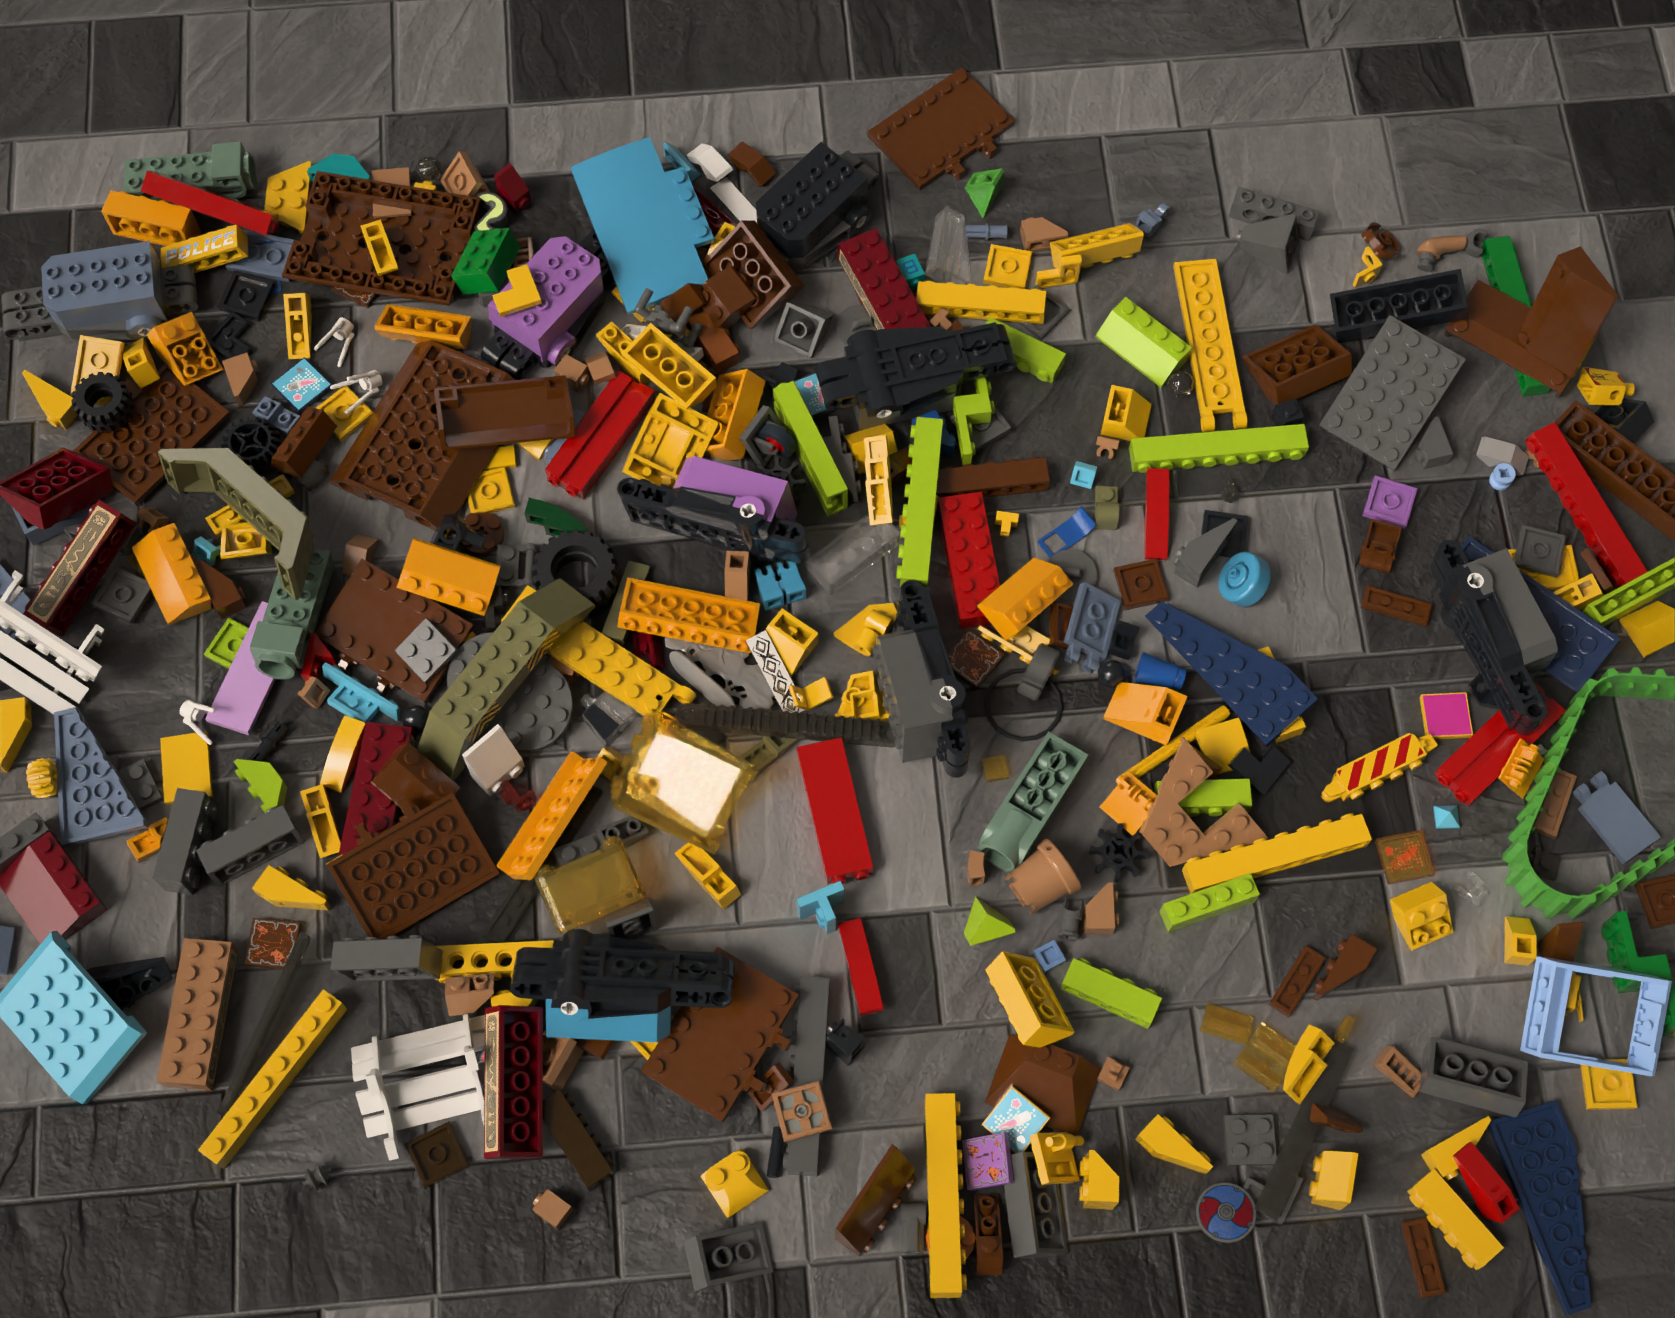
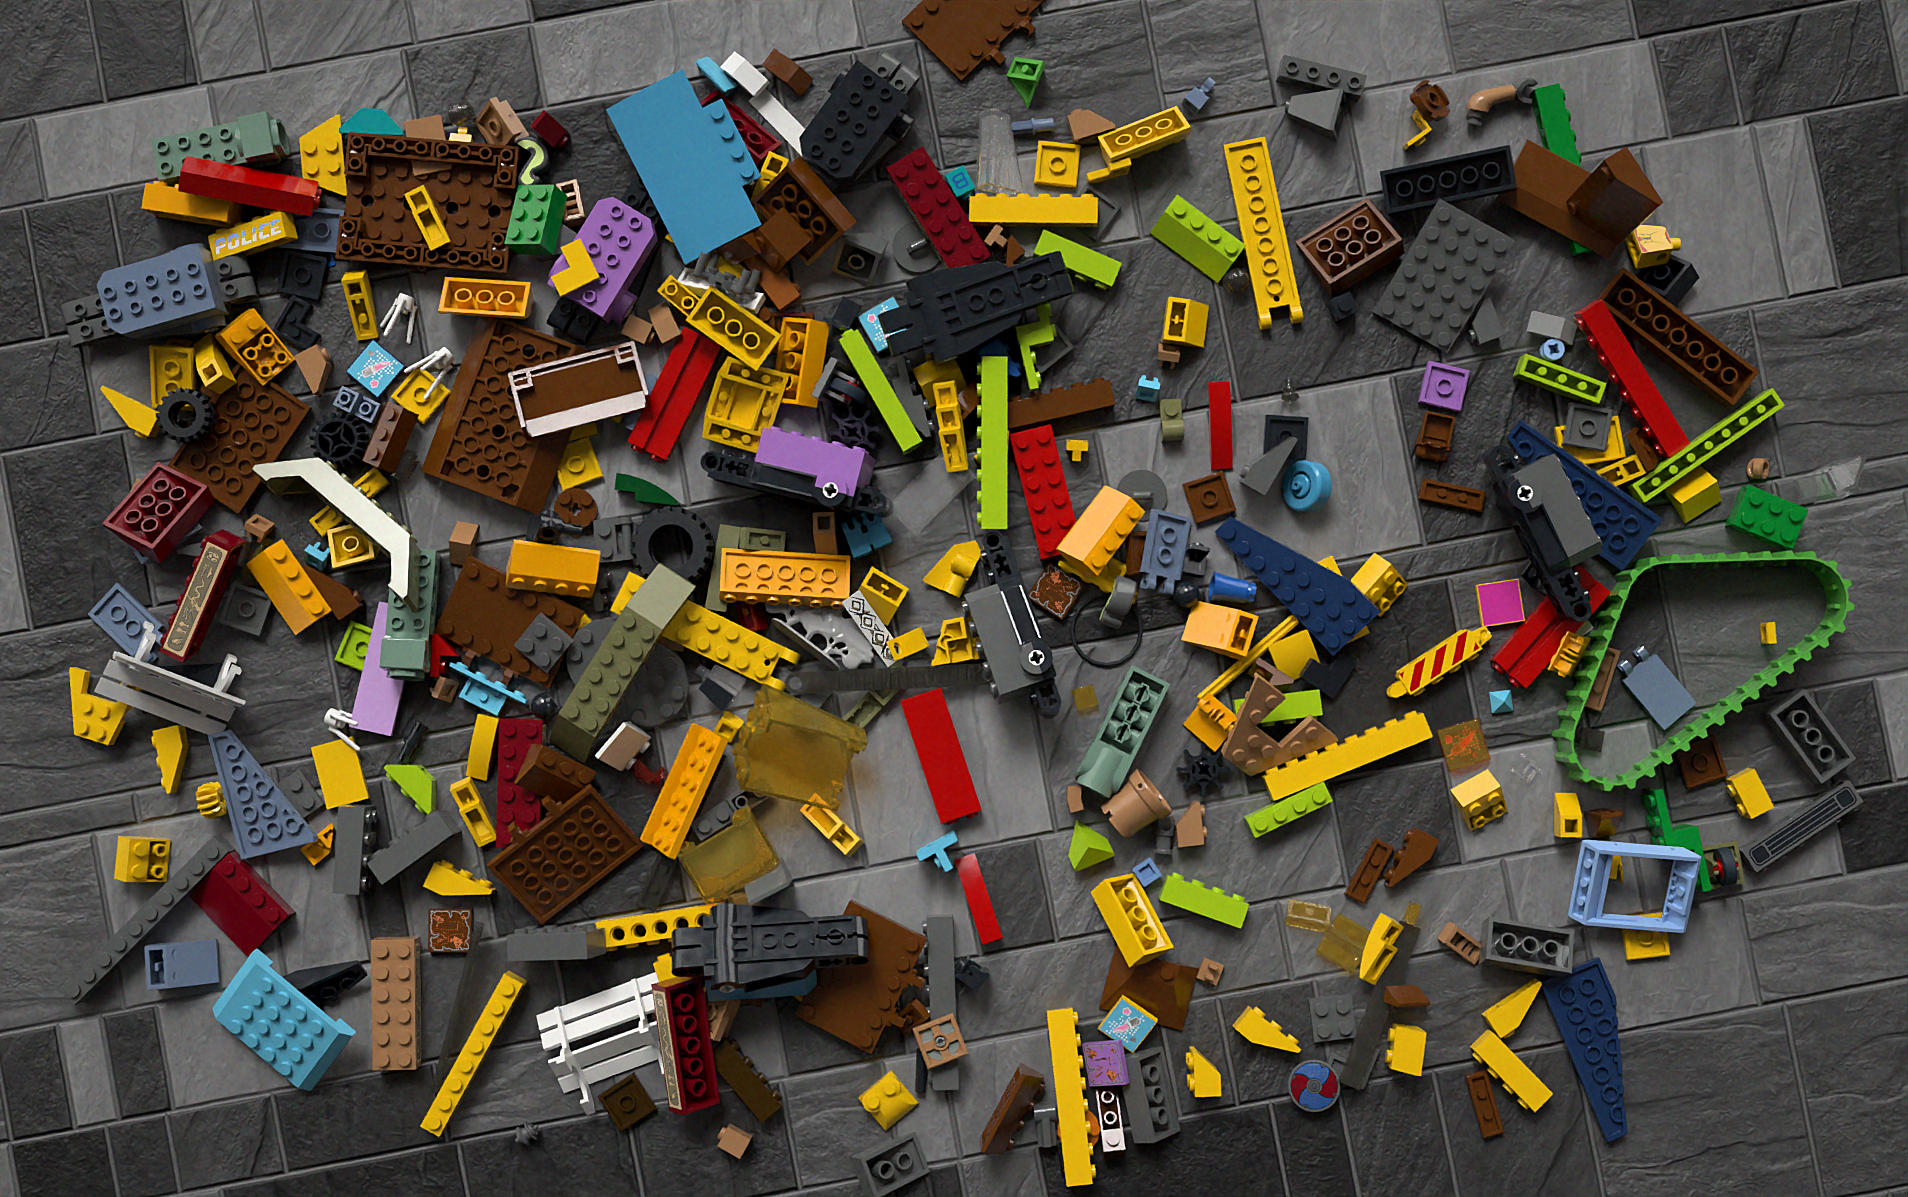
camera: 10 degrees left, 20 degrees up
(468, 993) = (633, 961): medium nougat slope -> none
(670, 575) = (762, 539): none -> olive plate
(1055, 1157) = (1164, 1054): yellow plate -> none
(1071, 530) = (1138, 449): blue piece -> none
(1219, 448) = (1276, 347): lime brick -> none
(1322, 679) = (1379, 582): none -> yellow slope
(1486, 1186) = (1537, 1042): red slope -> none
(1510, 501) = (1559, 380): none -> lime brick

